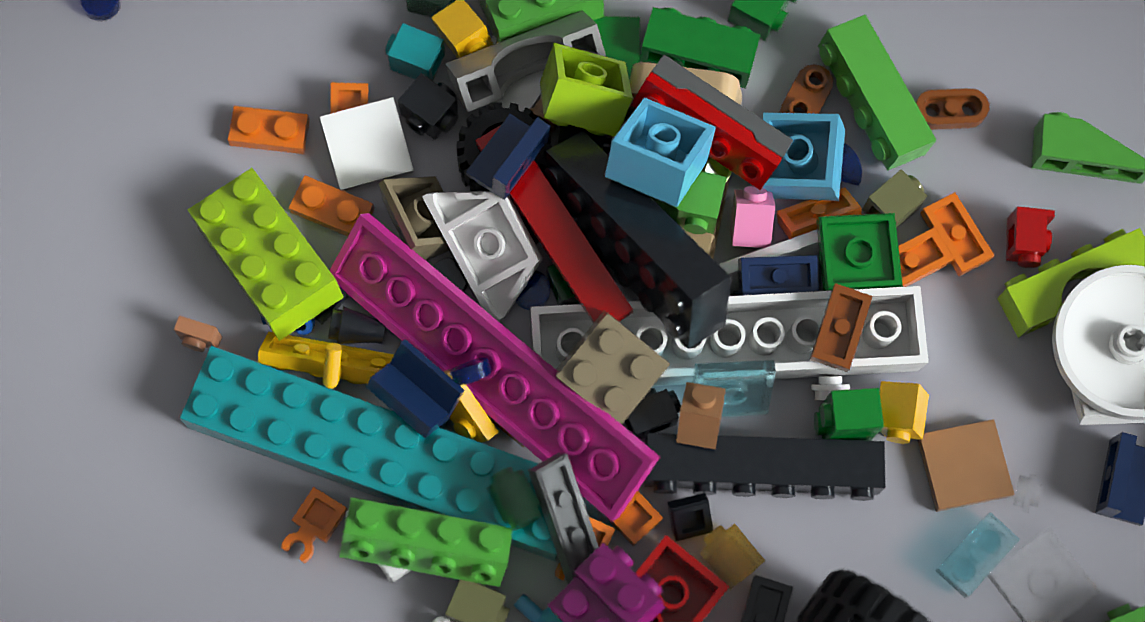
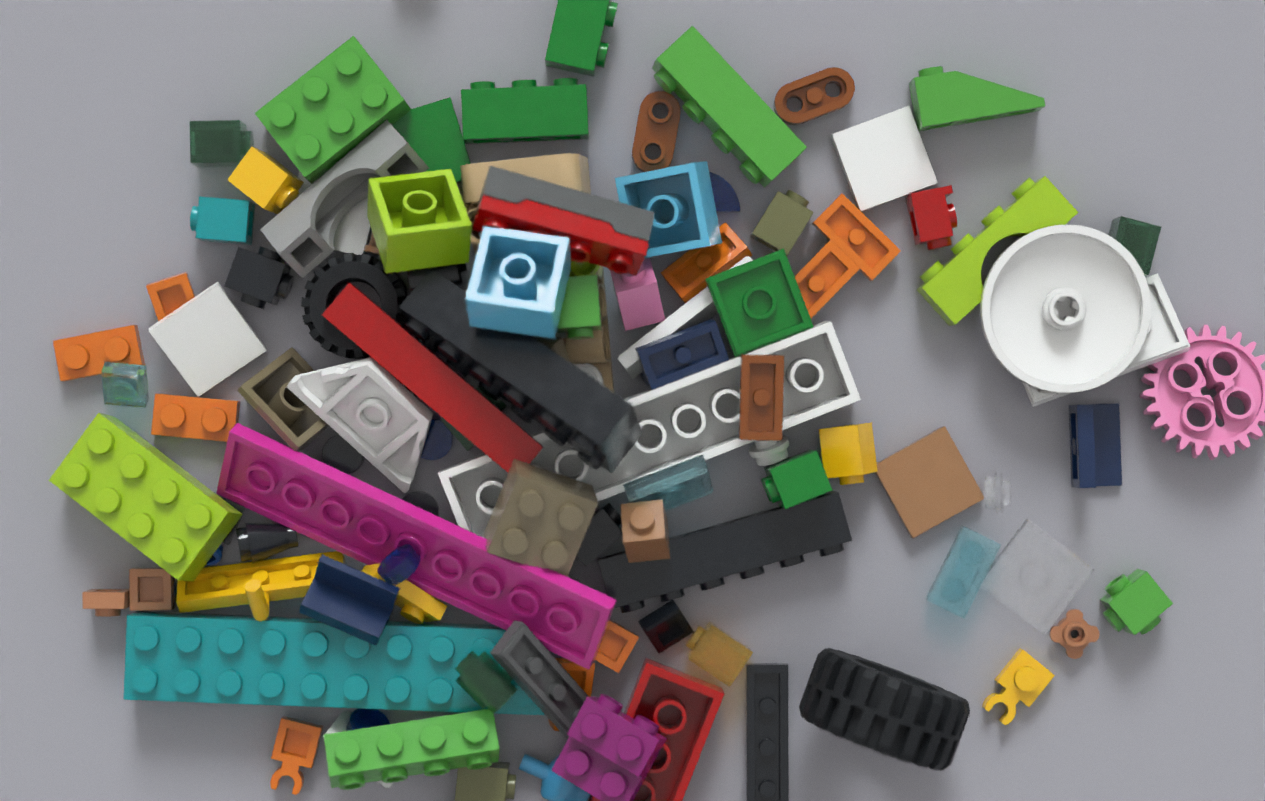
camera: 15 degrees left, 15 degrees up
(240, 336) = (150, 589): none -> nougat plate
(281, 159) = (125, 384): none -> clear light blue plate
(509, 155) = (361, 324): dark blue panel -> none
(997, 177) = (884, 159): none -> white tile

